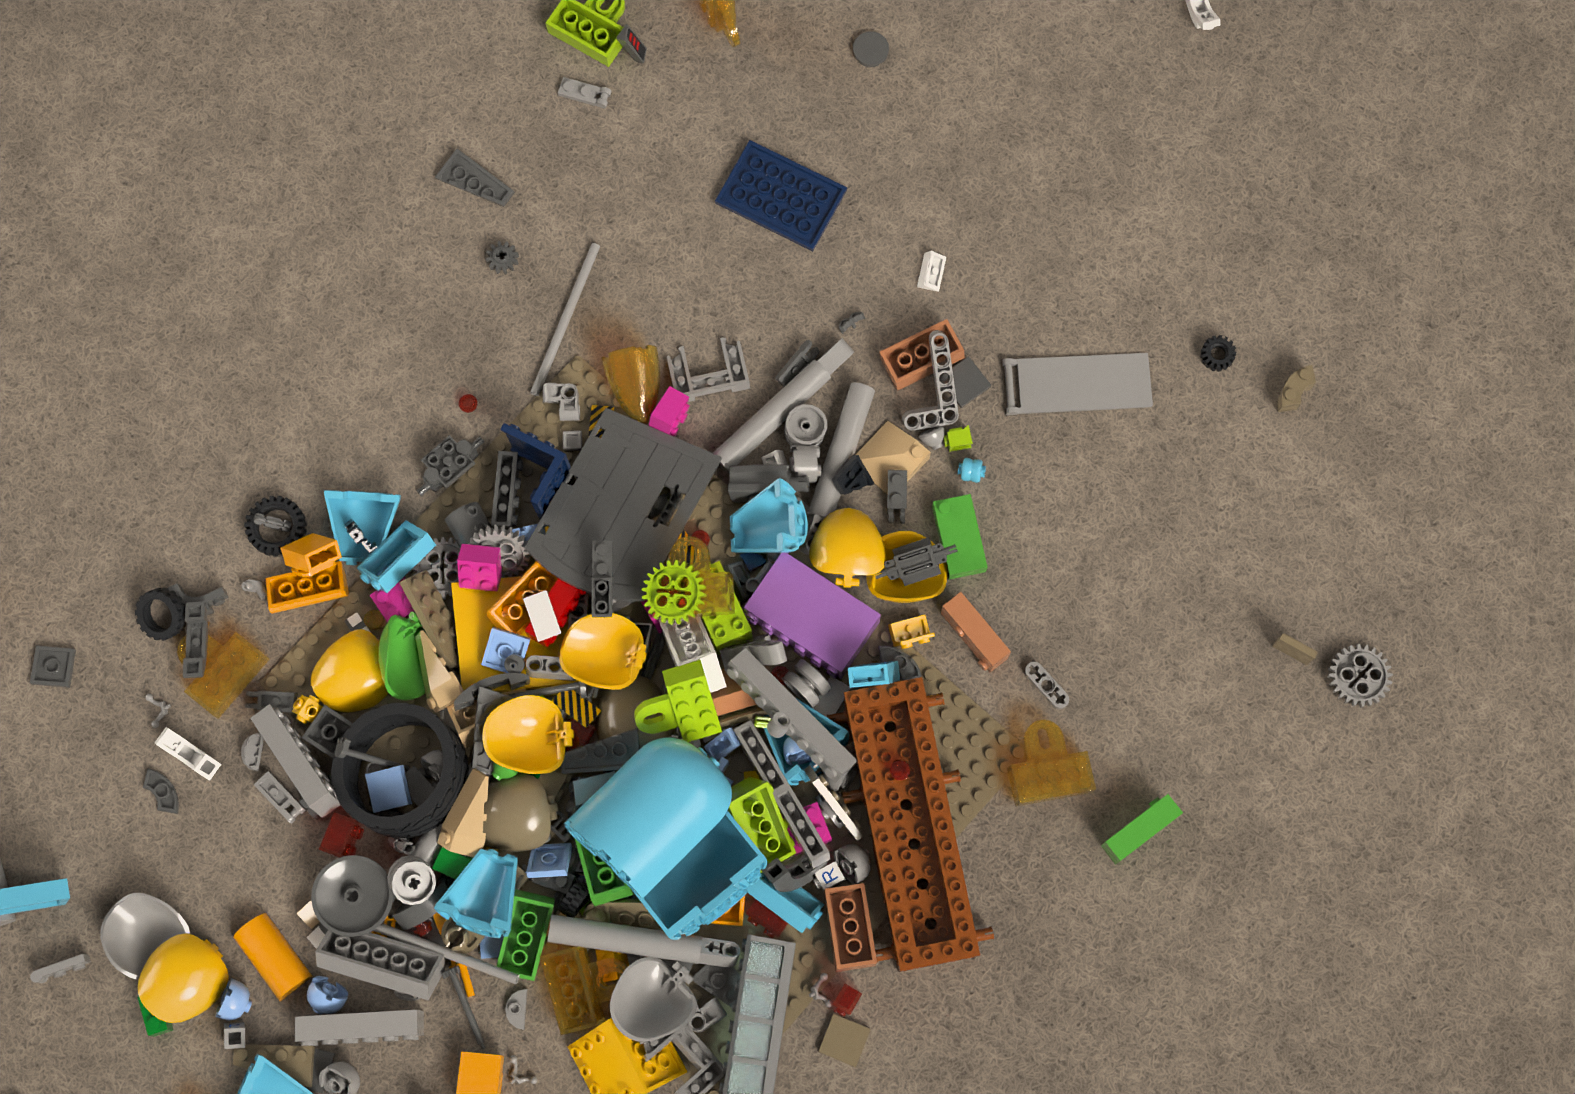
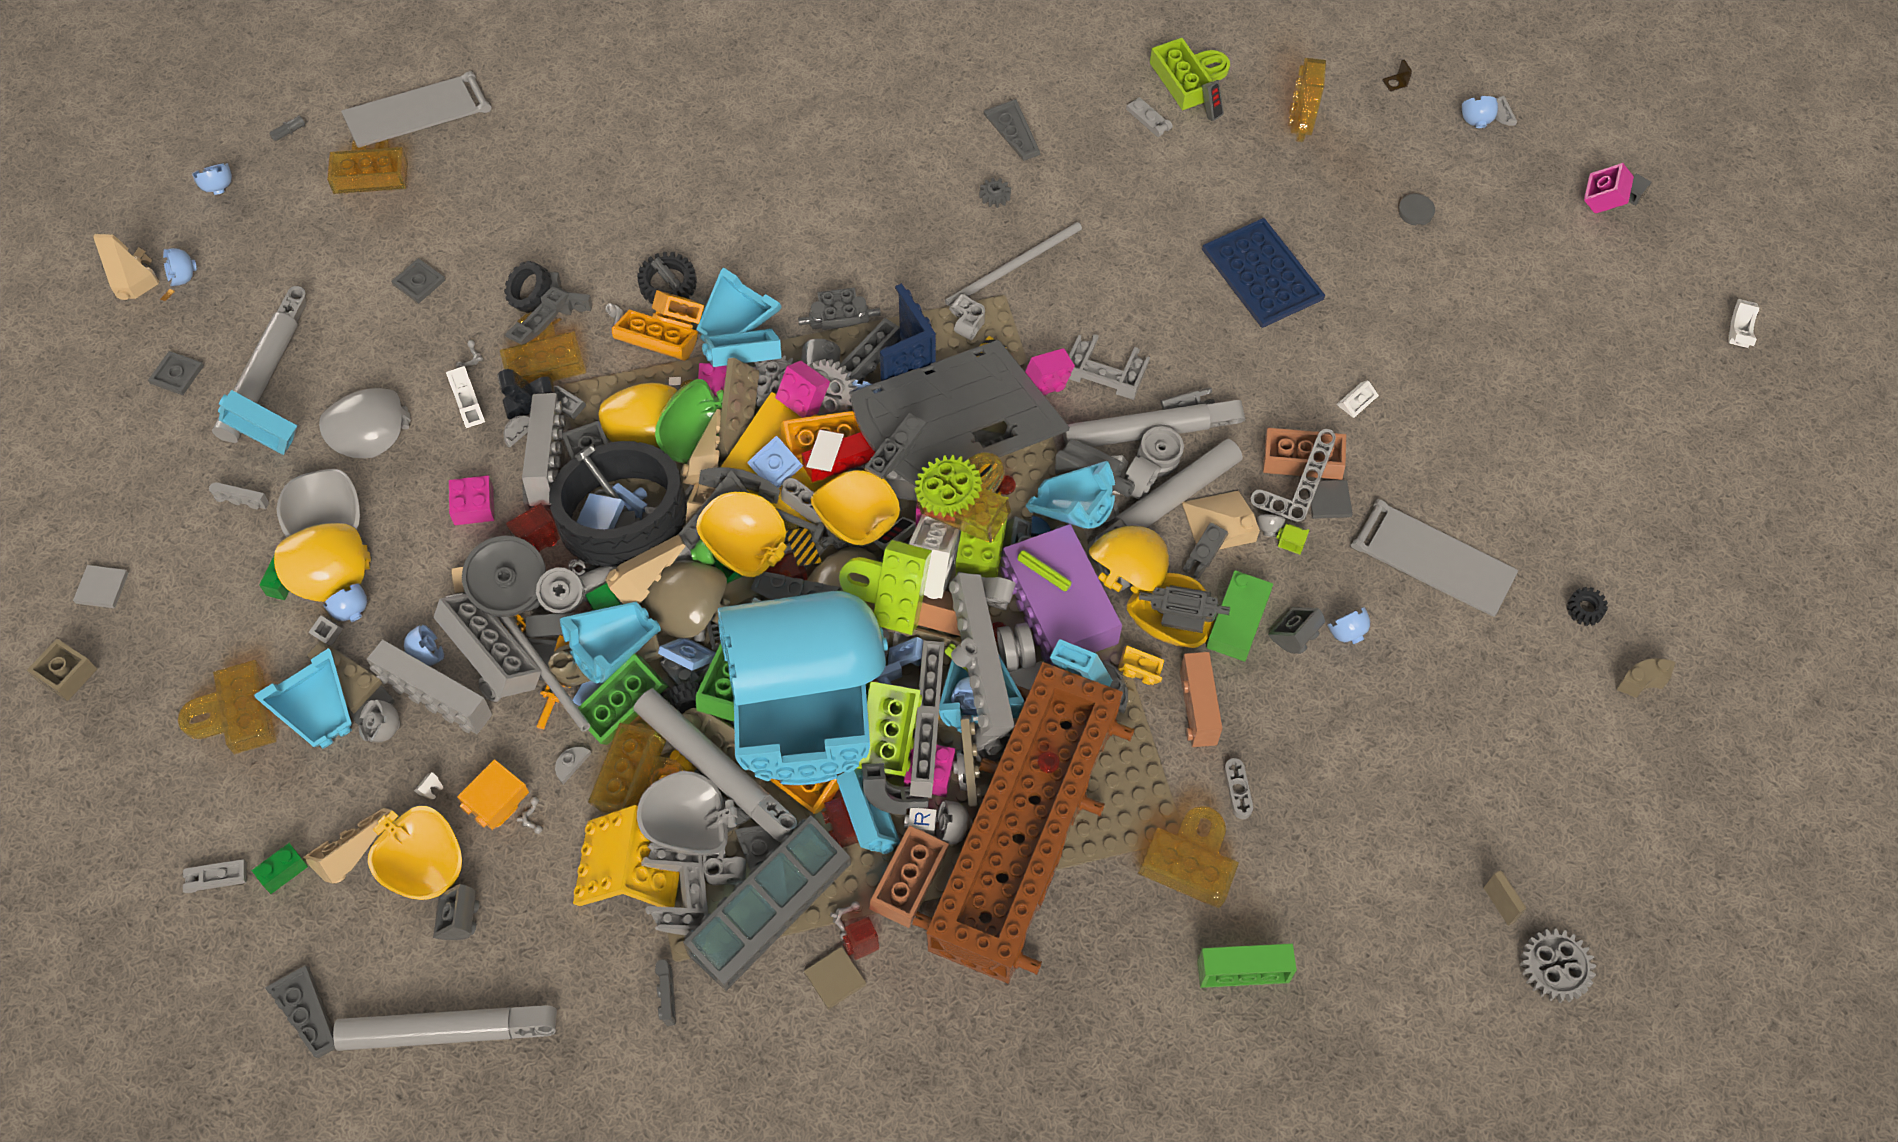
camera: 30 degrees right, 15 degrees down
(115, 831) = (364, 422): none -> light grey piece
(163, 791) = (425, 417): dark grey tile -> none
(236, 721) = (520, 392): none -> black beam
(265, 842) = (471, 500): none -> dark pink brick
(272, 956) = (406, 590): light orange brick -> none
(279, 796) = (510, 475): light grey plate -> none
(306, 708) = (581, 411): yellow brick -> none
(357, 535) = (724, 315): piece -> none
(402, 754) = (633, 501): none -> light blue tile
(423, 928) = (542, 643): clear red plate -> none
(452, 972) = (538, 695): dark grey piece -> none
(468, 403) = (888, 279): clear red plate -> none
(517, 660) = (775, 475): dark grey tile -> none
(572, 441) = (951, 349): light grey tile -> none
(634, 379) = (1039, 327): clear yellow cylinder -> none
(790, 607) = (1044, 570): none -> lime axle
(852, 476) = (1175, 510): black wing -> none
(854, 317) = (1258, 395): dark grey piece -> none
(972, 470) = (1288, 569): medium azure piece -> none
(1010, 519) = (1297, 629): none -> dark grey brick
(1050, 490) = (1351, 627): none -> light blue cylinder

